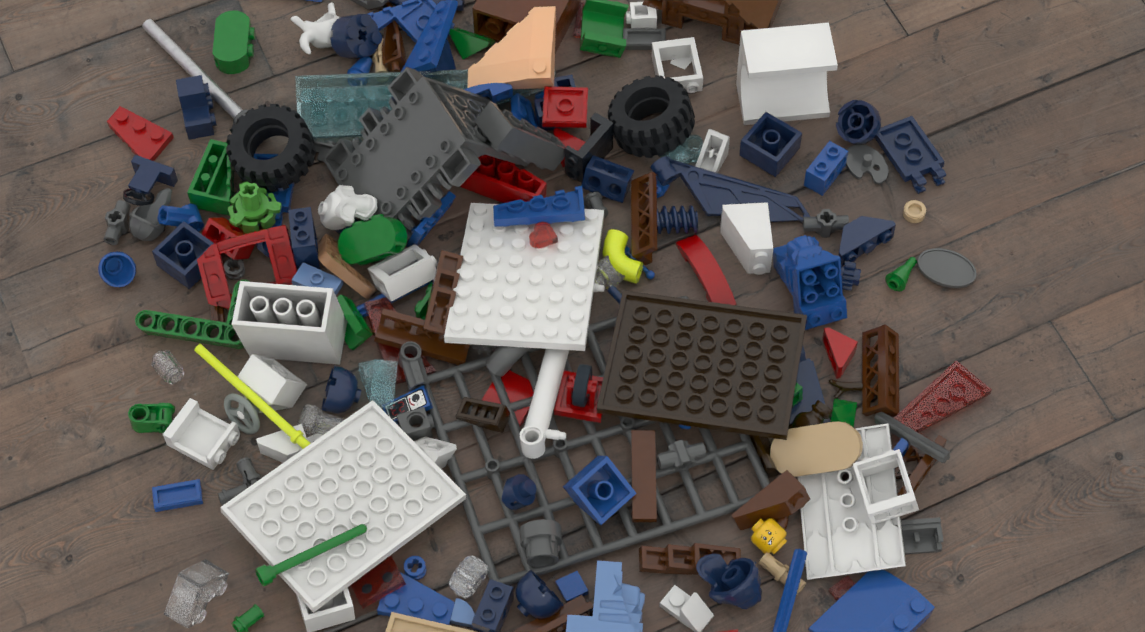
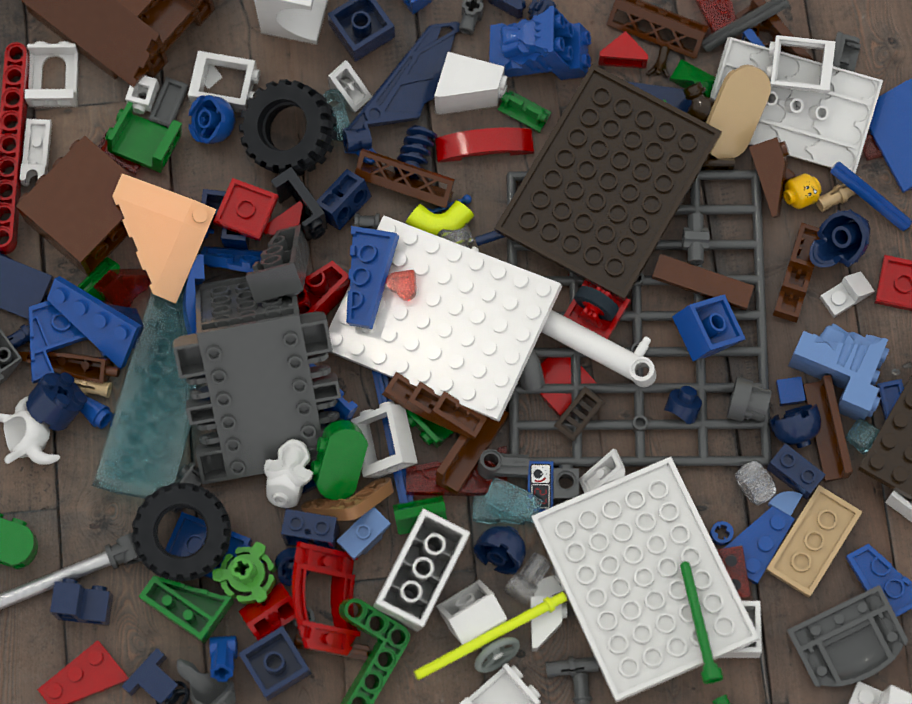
camera: 70 degrees left, 15 degrees up
(467, 50) = (122, 286): none -> clear red slope
(638, 66) = (211, 119): none -> blue cylinder
(751, 288) = (524, 110): none -> green hinge

